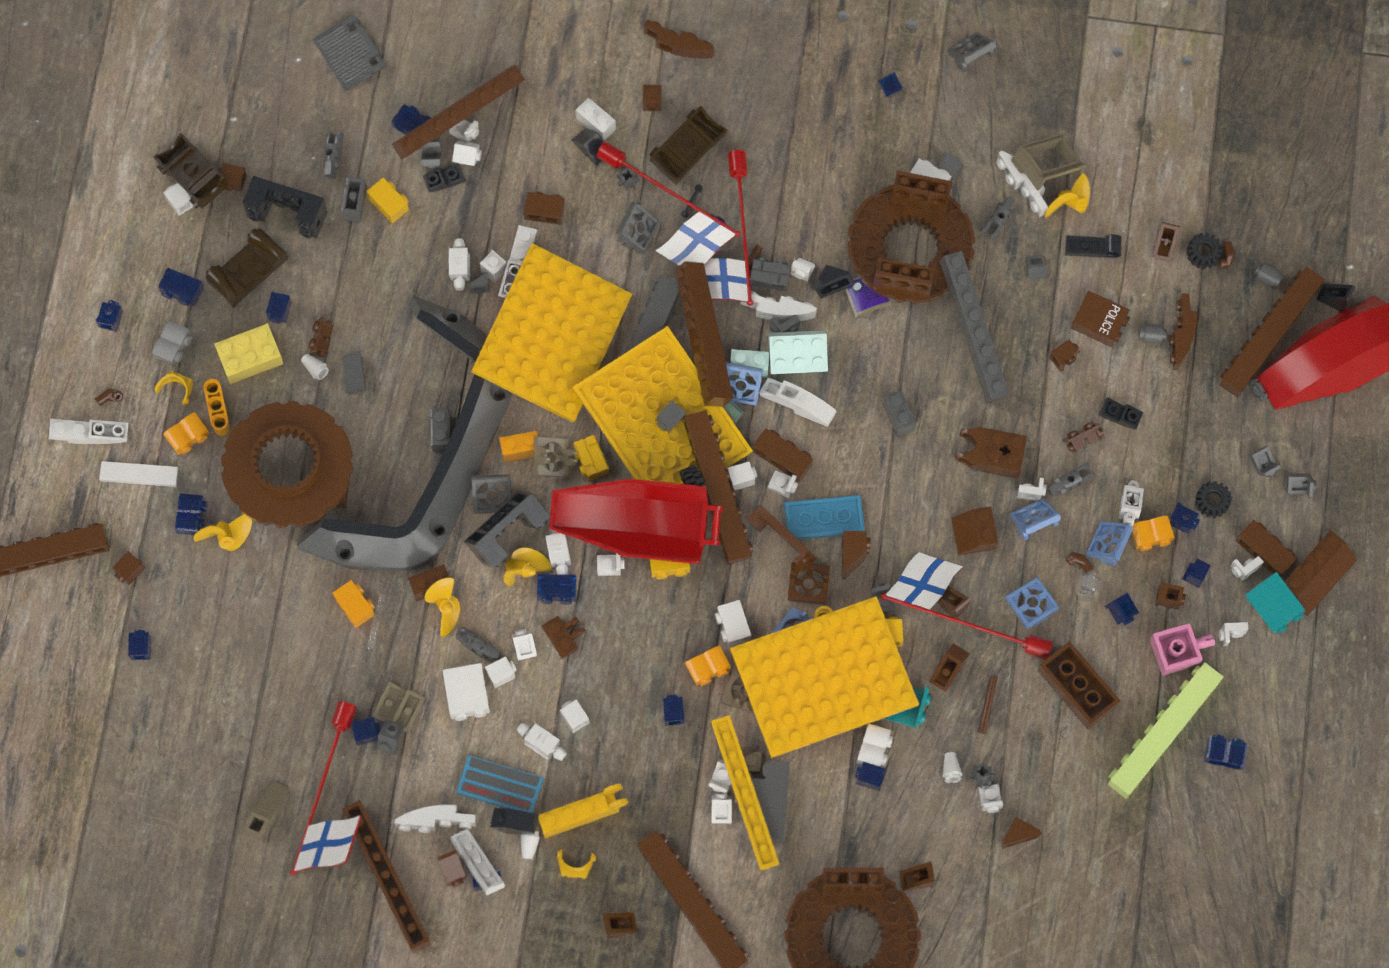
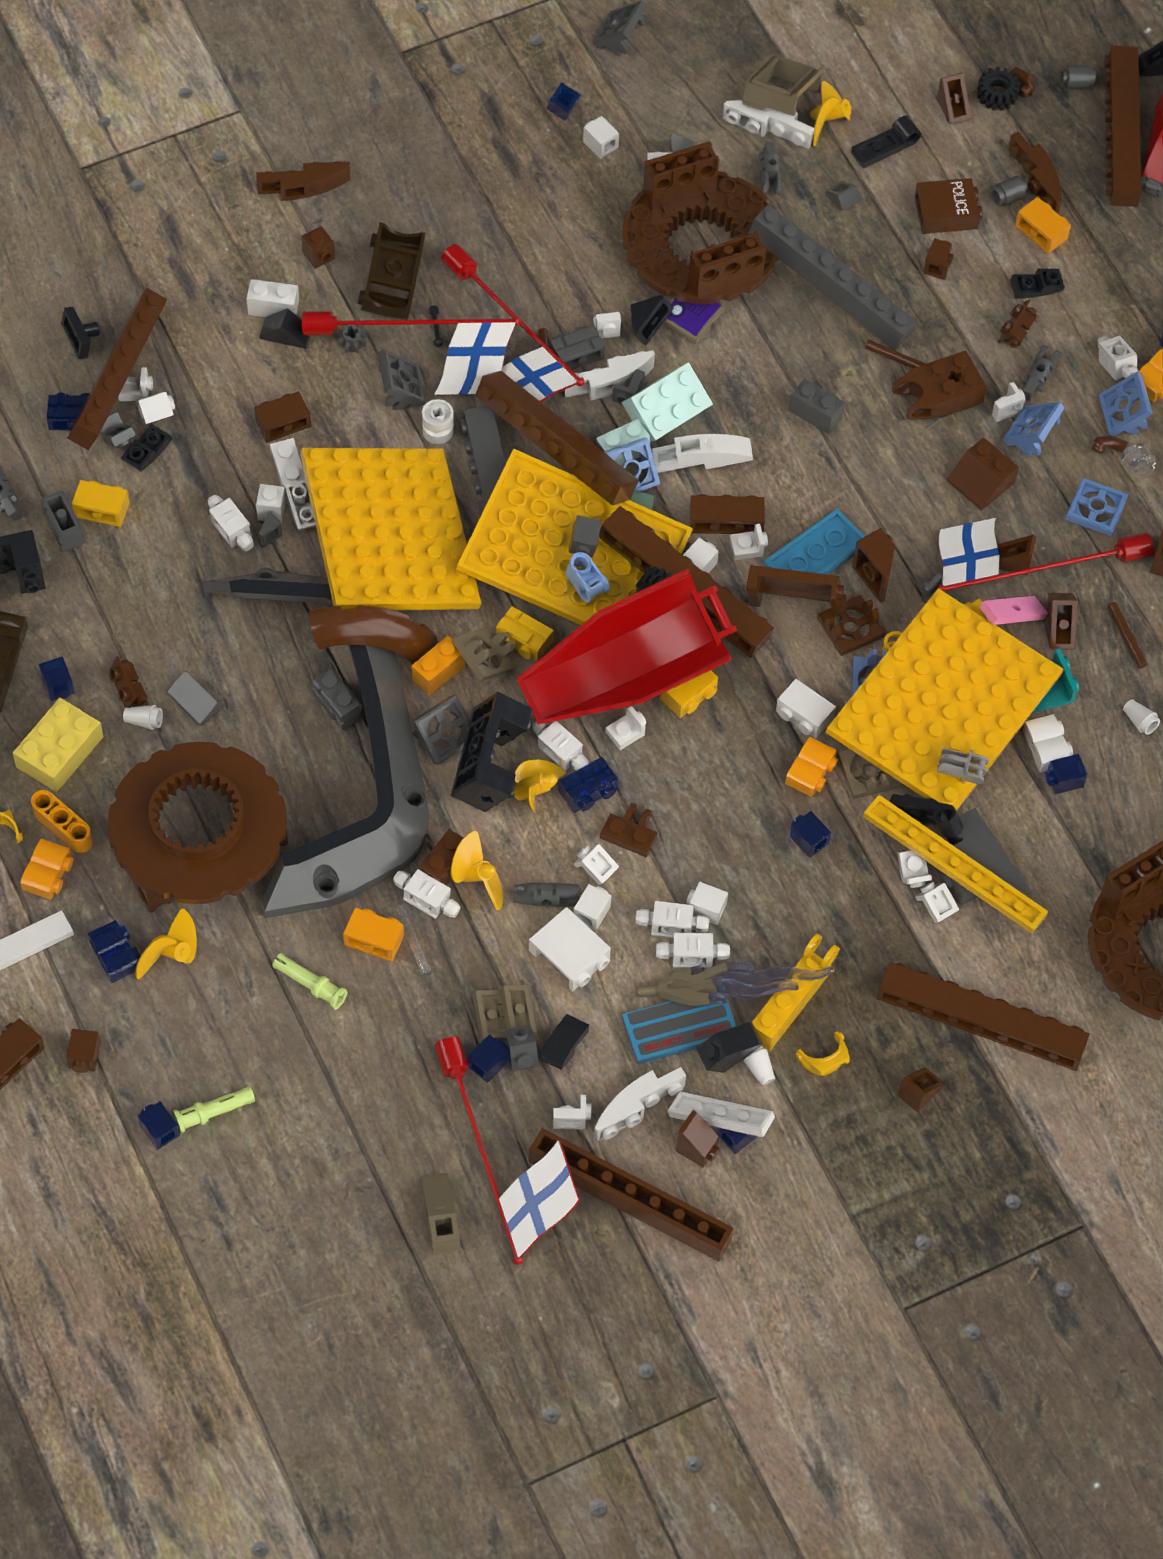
camera: 35 degrees left, 10 degrees down
(171, 654) = (203, 1111): none -> yellowish green pin
(296, 617) = (319, 986): none -> yellowish green pin
(387, 802) = (572, 1118): none -> white bracket
(404, 597) = (426, 894): none -> white piece
(419, 749) = (563, 1041): none -> black slope
(456, 68) = (78, 333): none -> black tile
(487, 400) = (373, 628): none -> reddish brown brick
(543, 713) = (671, 919): none -> white piece
(543, 773) = (733, 979): none -> clear purple piece
(640, 273) = (437, 421): none -> white wheel
(651, 450) = (588, 581): none -> light blue piece
(758, 745) = (930, 811): none -> black plate
(796, 731) = (958, 765): none -> light grey arm
(899, 126) = (600, 137): none -> white brick
(918, 641) = (1013, 610): none -> bright pink tile
(982, 407) = (893, 355): none -> reddish brown bar
(1156, 373) = (1043, 225): none -> light orange brick

